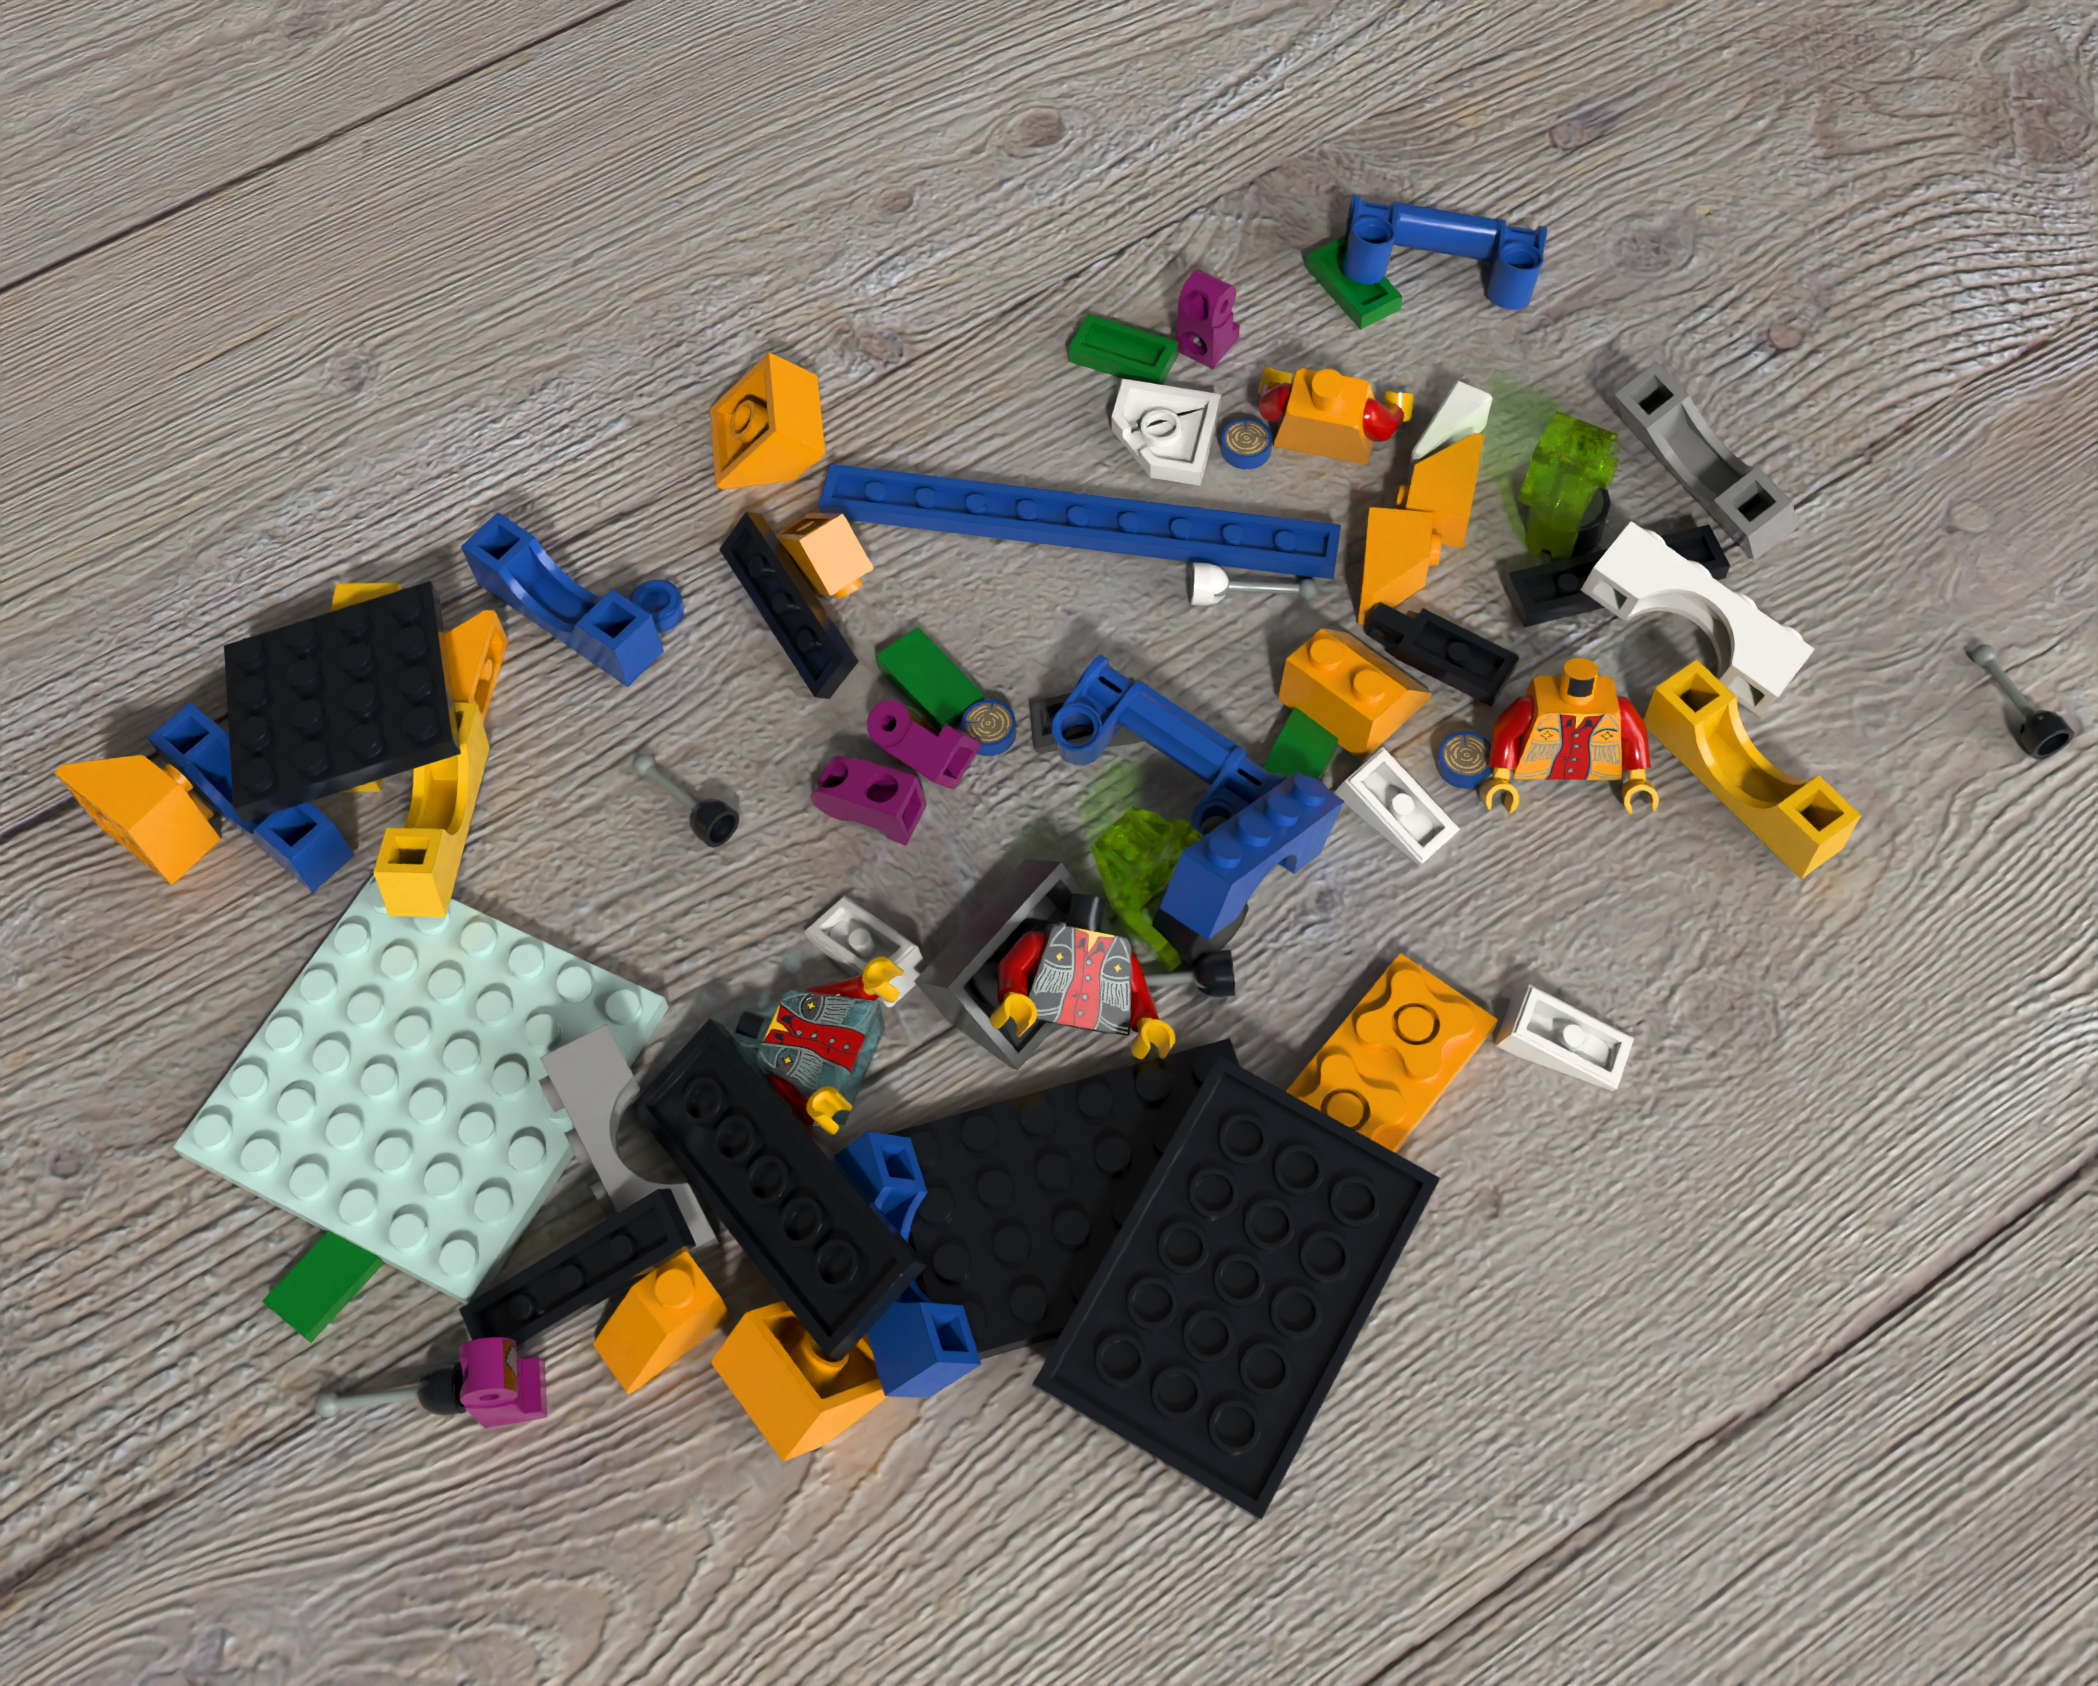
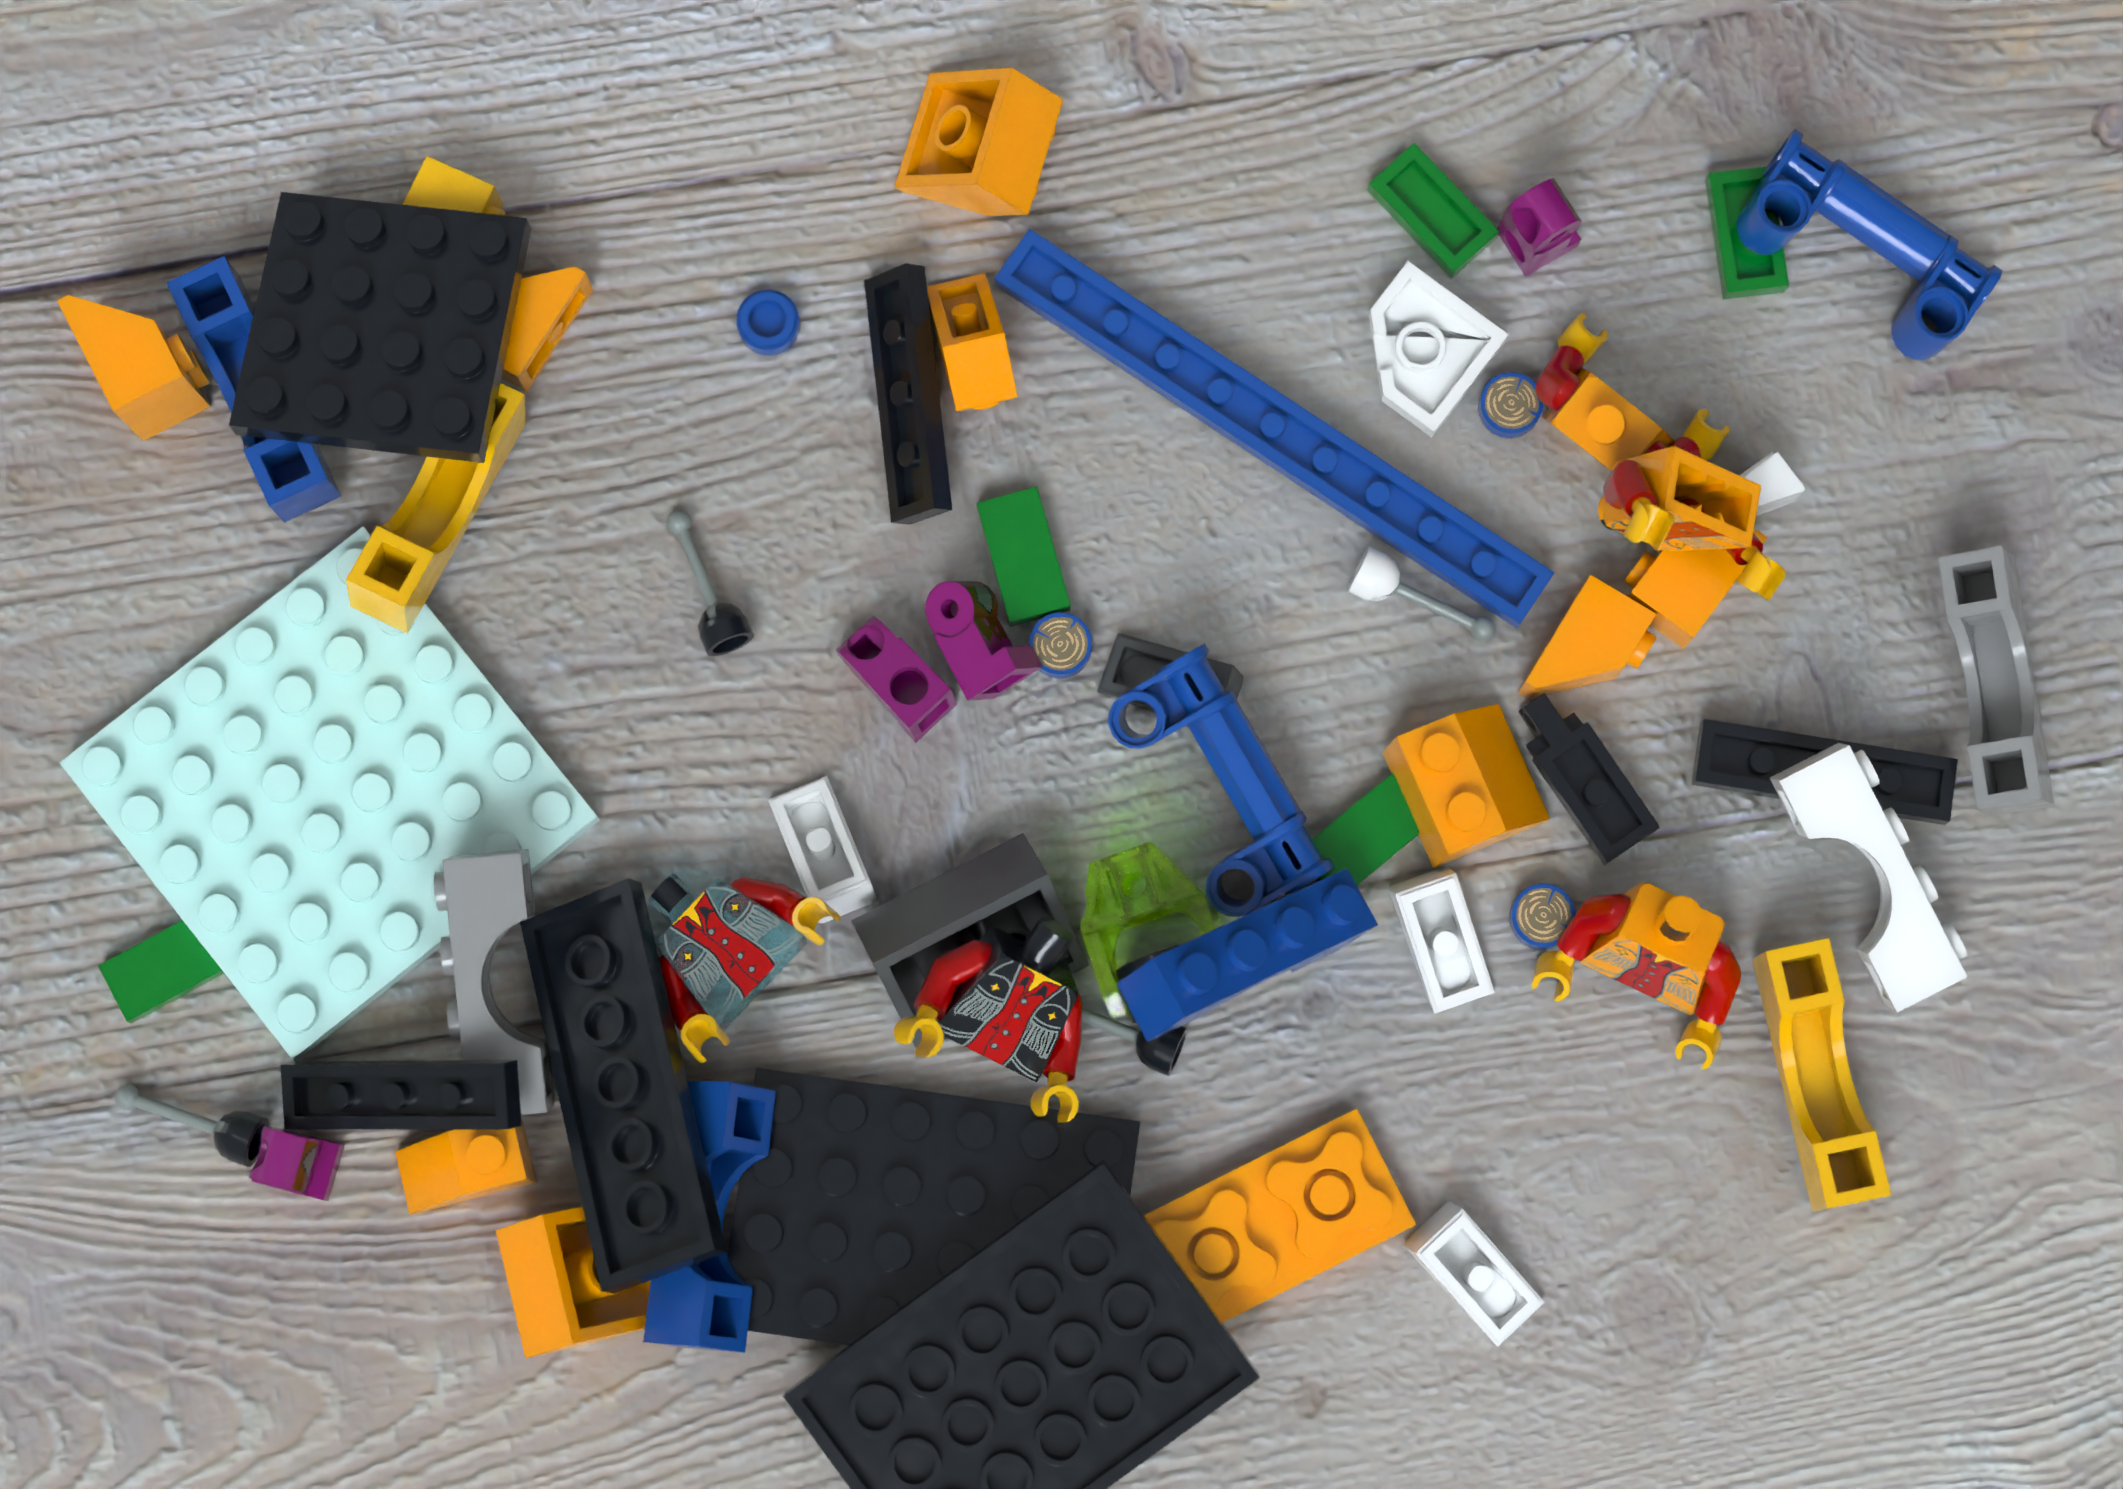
camera: 20 degrees right, 20 degrees up
(601, 629) = (664, 283): blue arch -> none
(1414, 414) = (1686, 506): none -> torso
(1569, 488) = (1817, 657): clear neon green piece -> none

